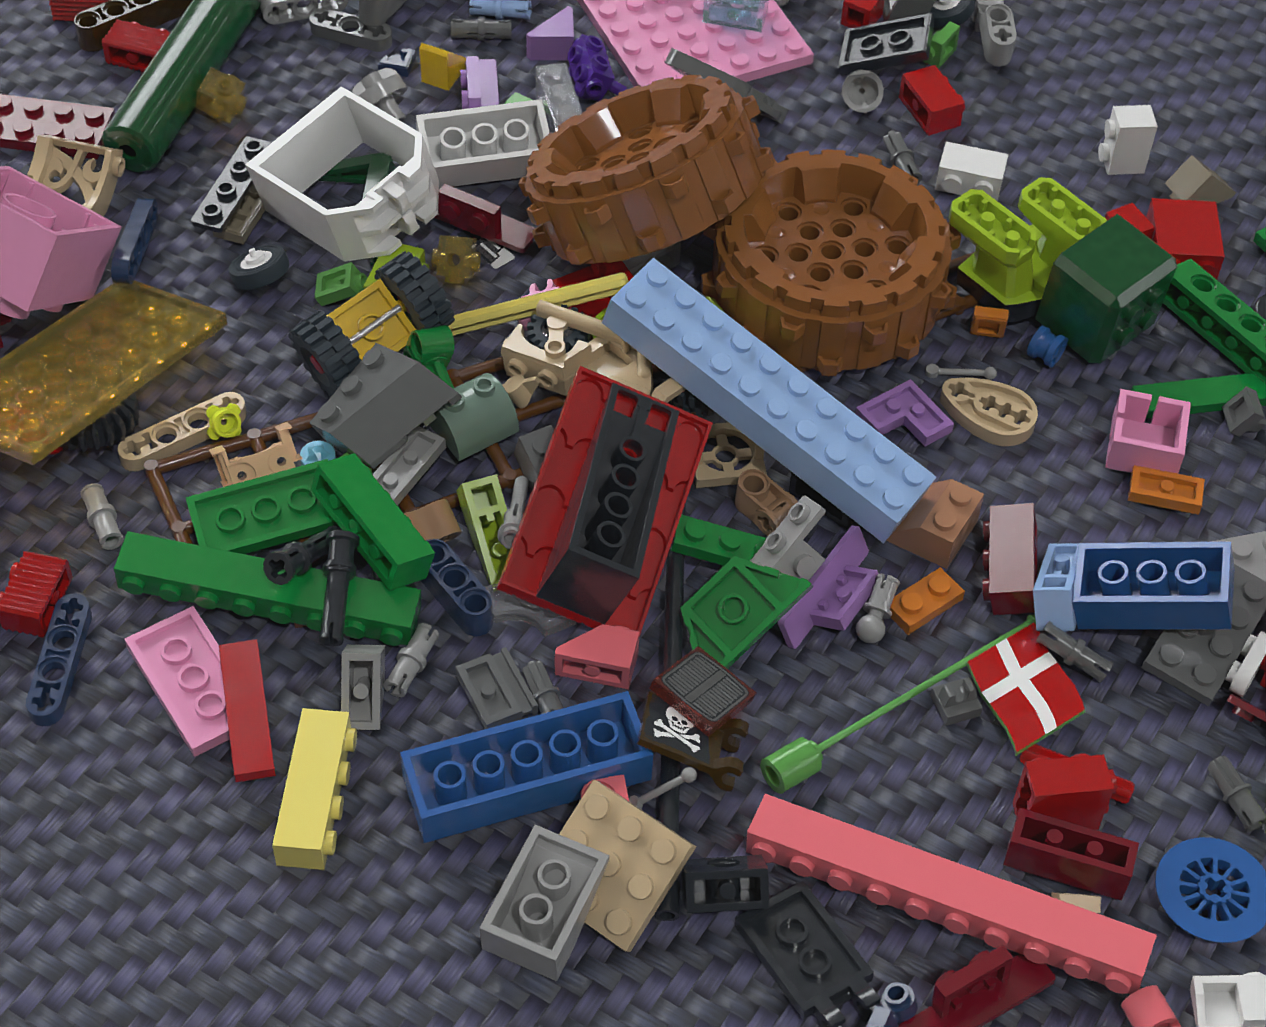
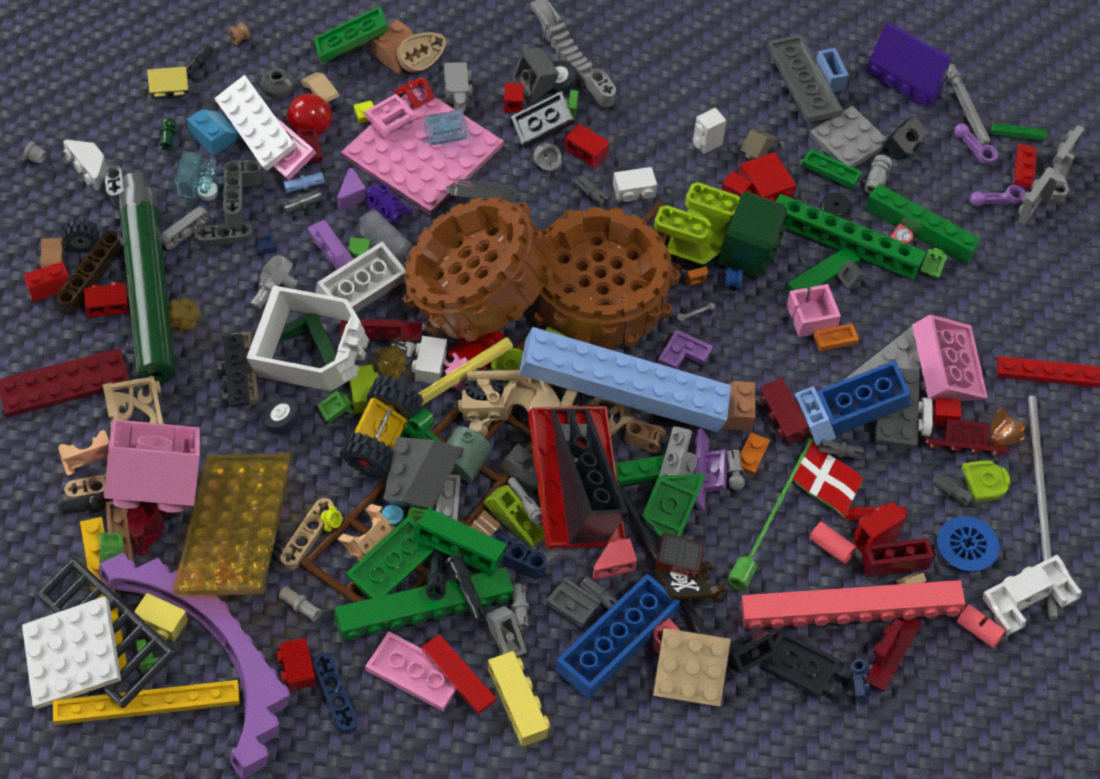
camera: 30 degrees left, 5 degrees up
(134, 241) = (197, 421): dark blue beam -> none
(440, 66) = (296, 238): yellow slope -> none
(514, 275) = (430, 359): none -> white piece
(543, 902) = (672, 701): light grey slope -> none
(688, 775) = (701, 604): light grey hinge -> none
(956, 701) = (798, 501): dark grey tile -> none
(974, 785) = (833, 542): none -> coral pin
(976, 396) = (726, 319): tan piece -> none

